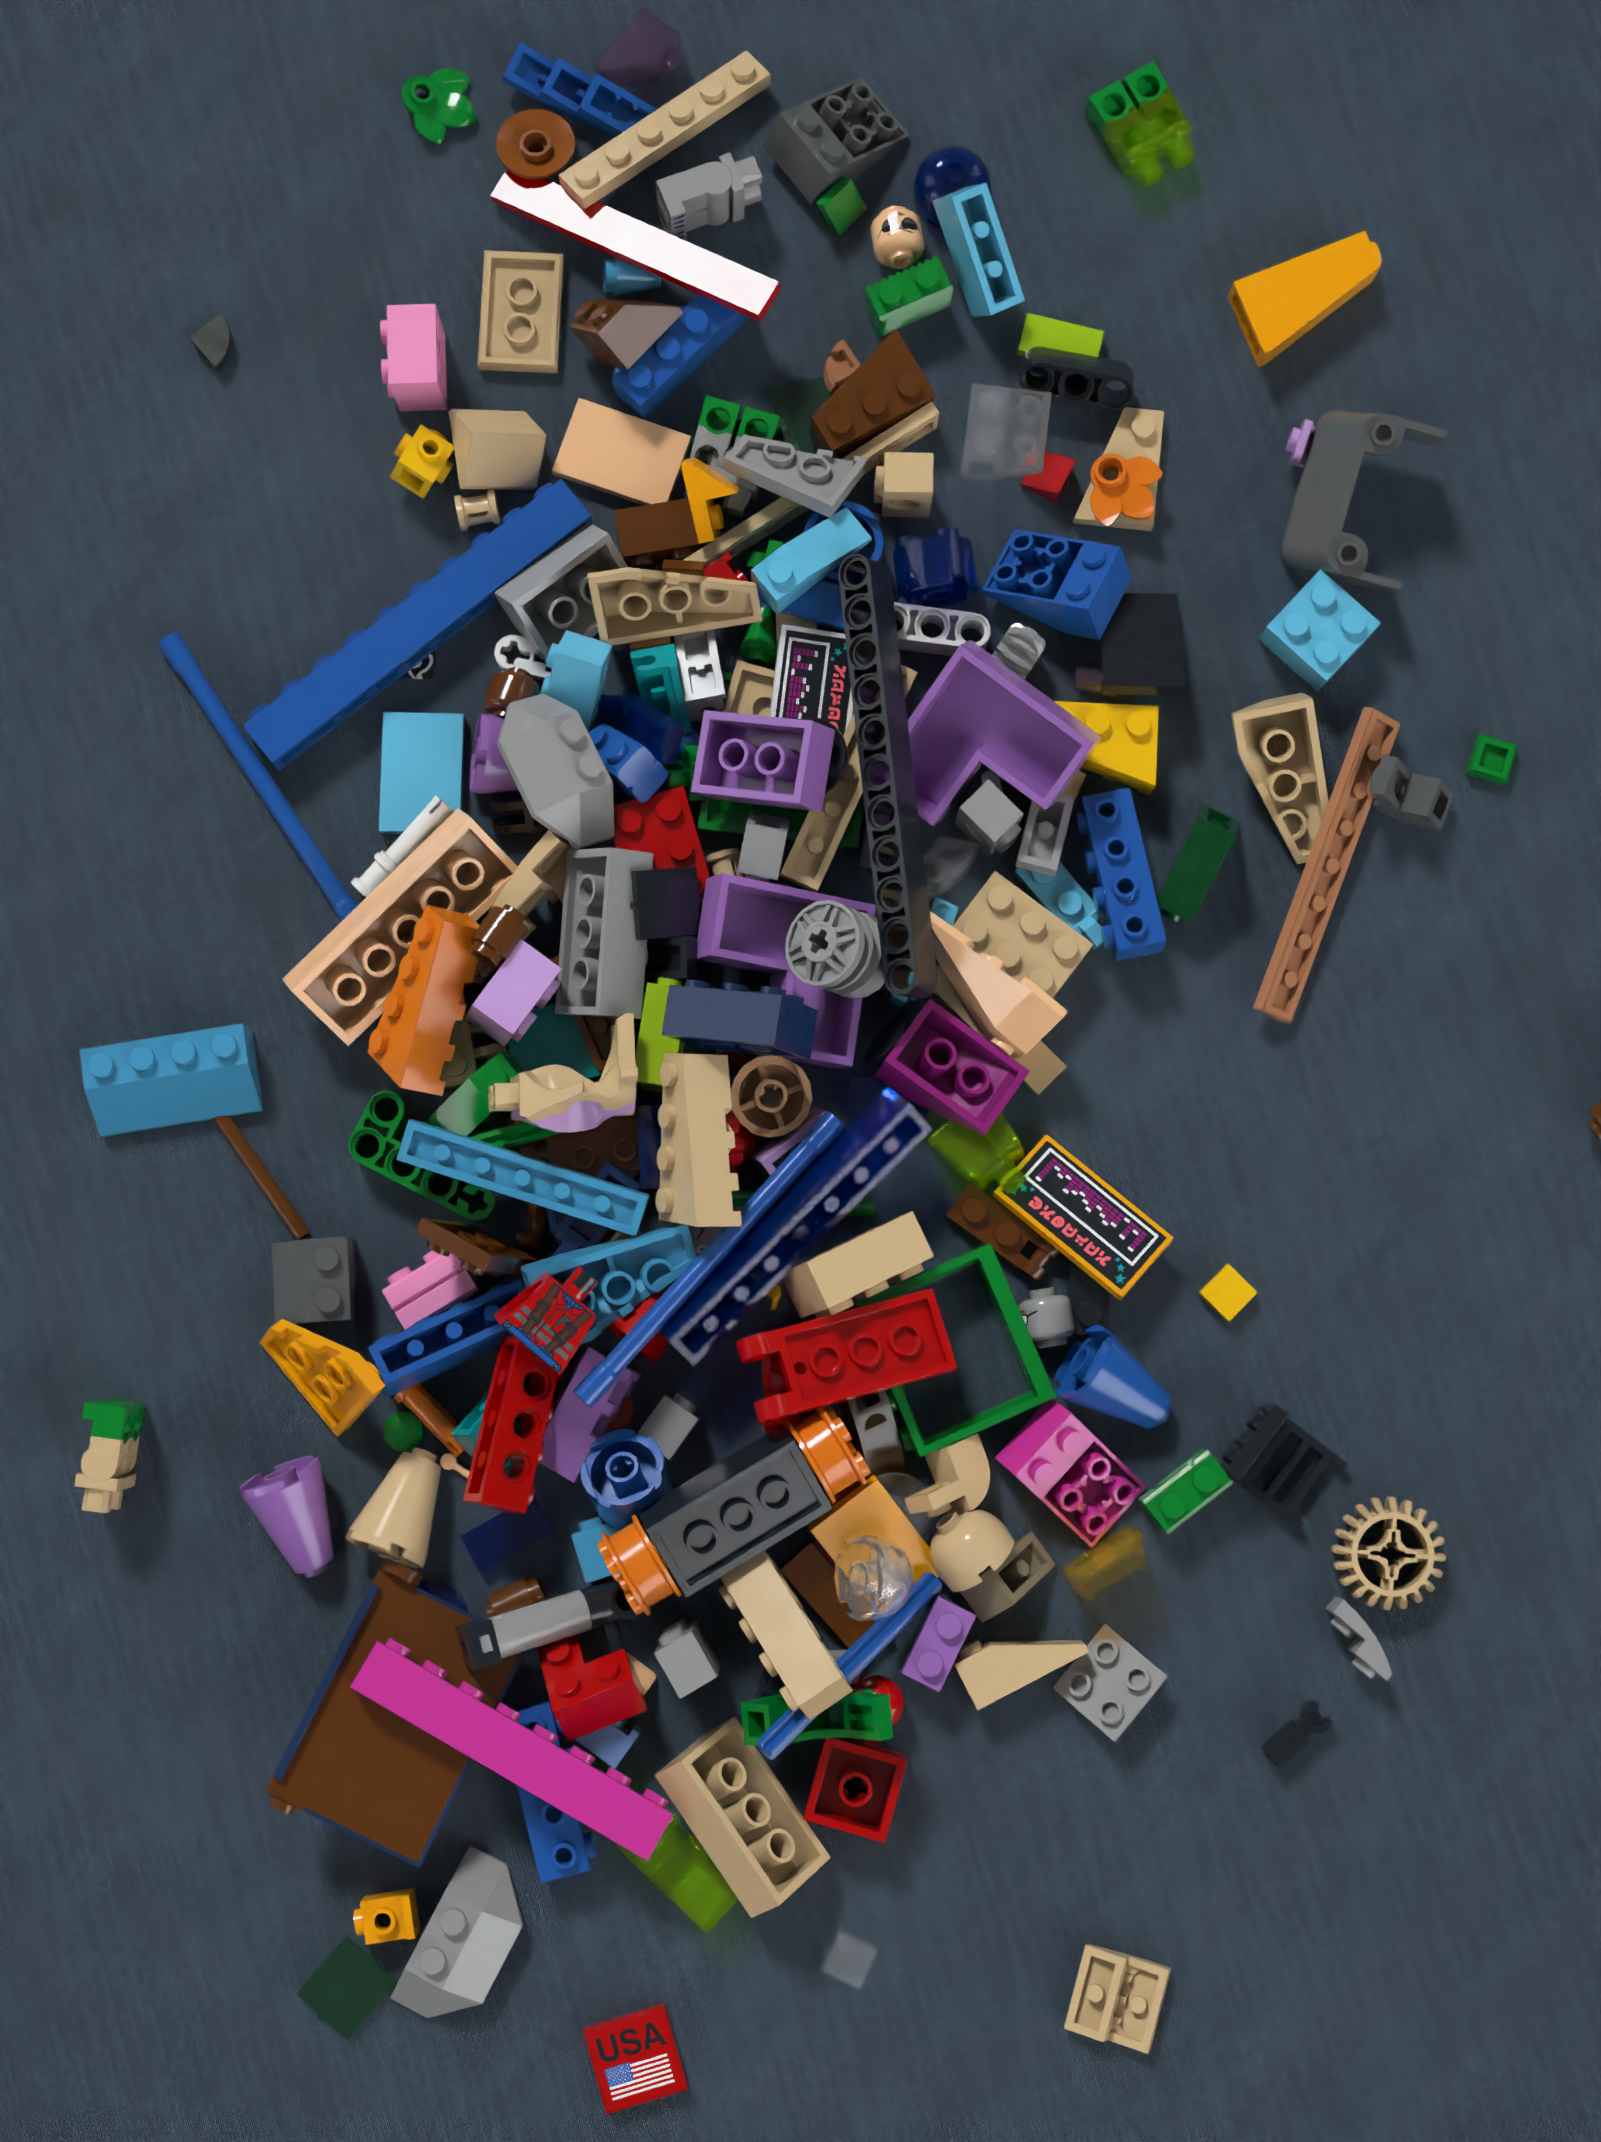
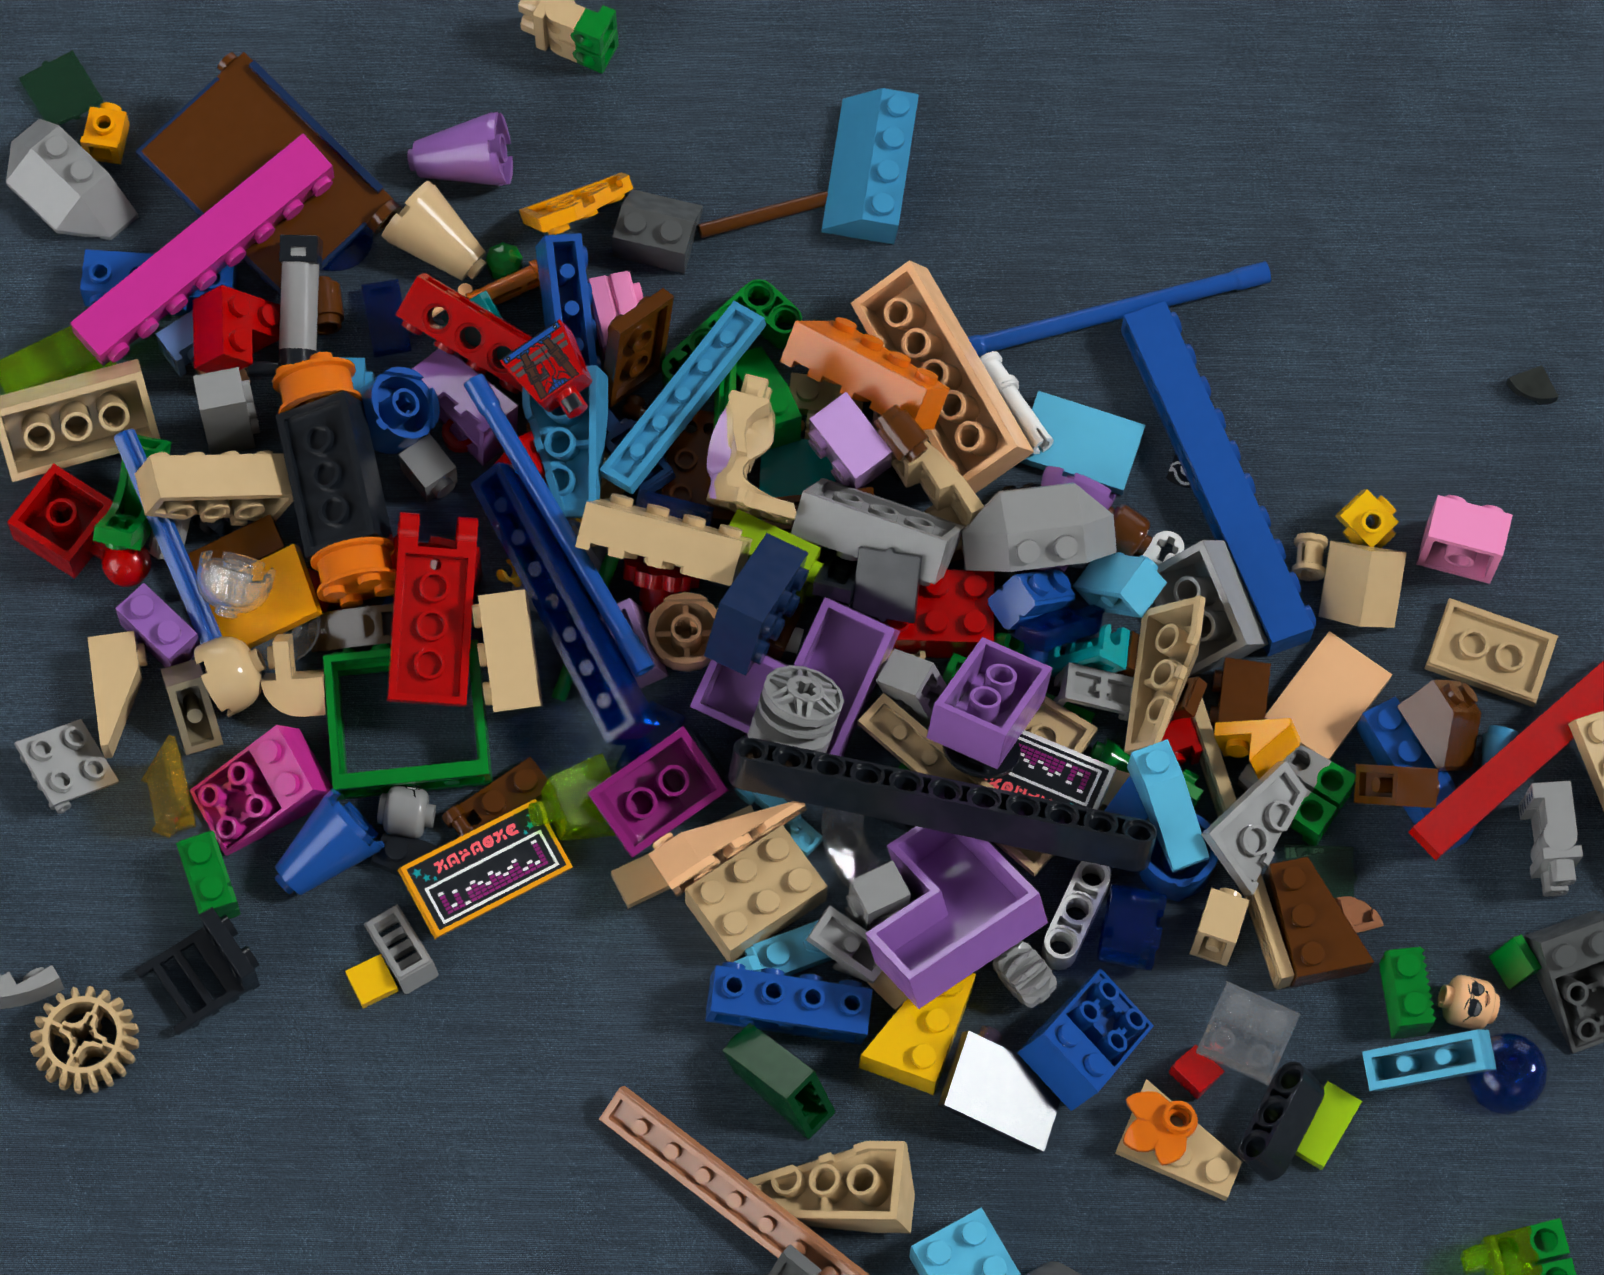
camera: 105 degrees right, 15 degrees down
(714, 347) = (1396, 785): none -> reddish brown slope
(1197, 1241) = (411, 971): none -> light grey slope

